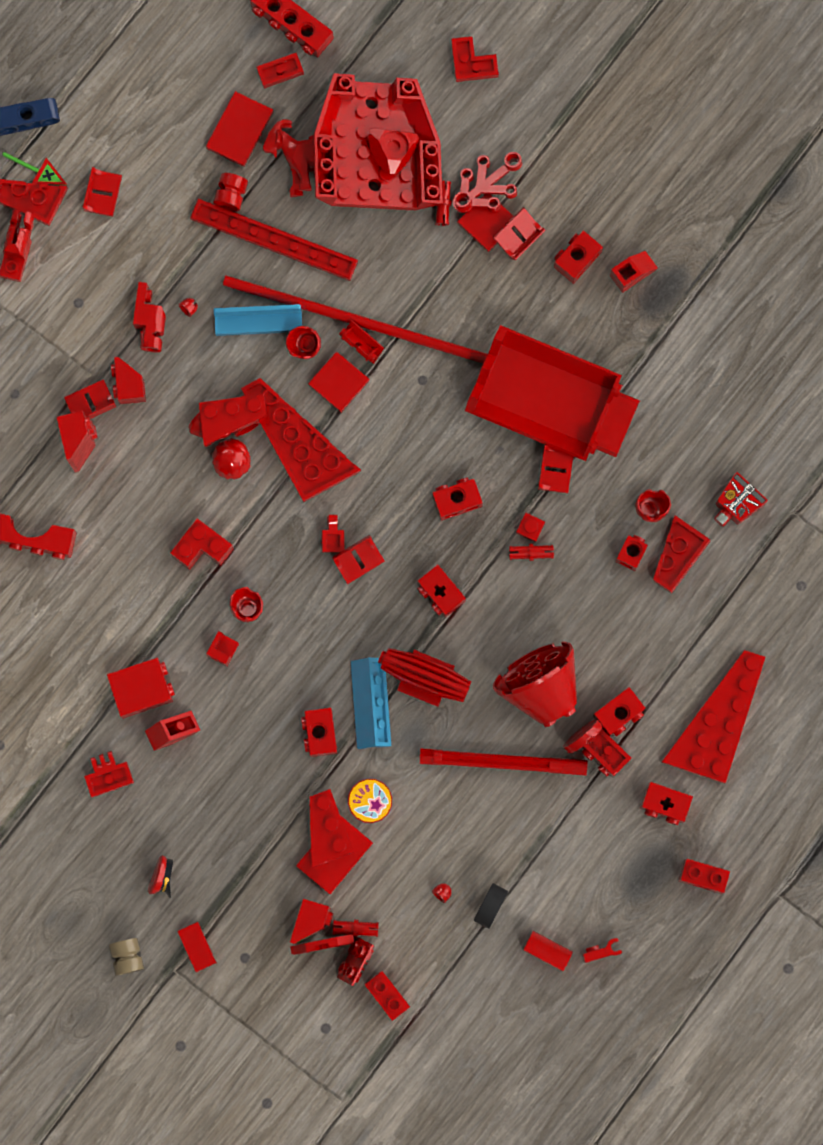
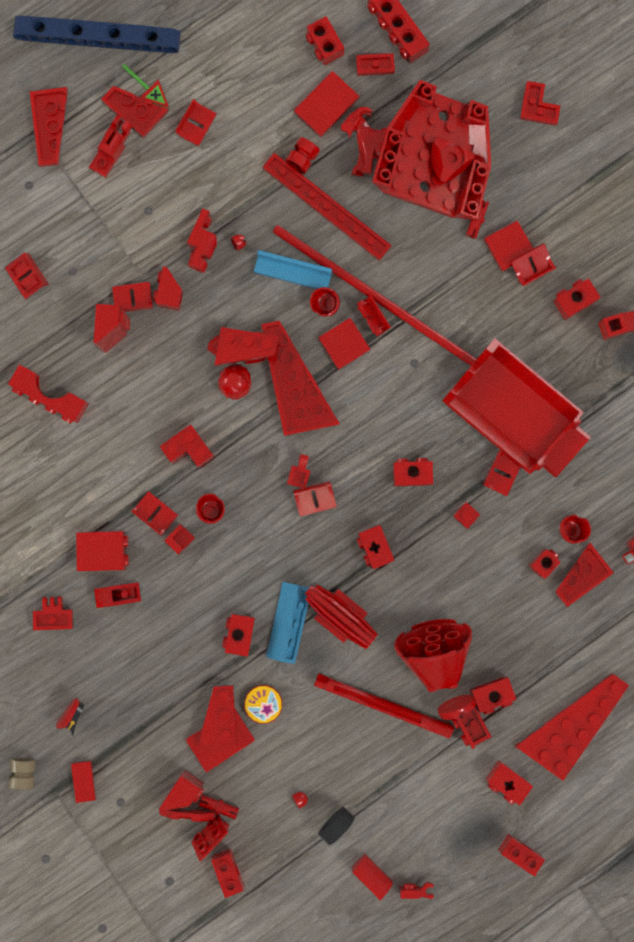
camera: 10 degrees right, 5 degrees up
(176, 625) = (147, 507): none -> red piece
(221, 58) = (329, 39): none -> red brick
(485, 185) = (517, 214): plant -> none
(531, 552) = (460, 536): red pin -> none

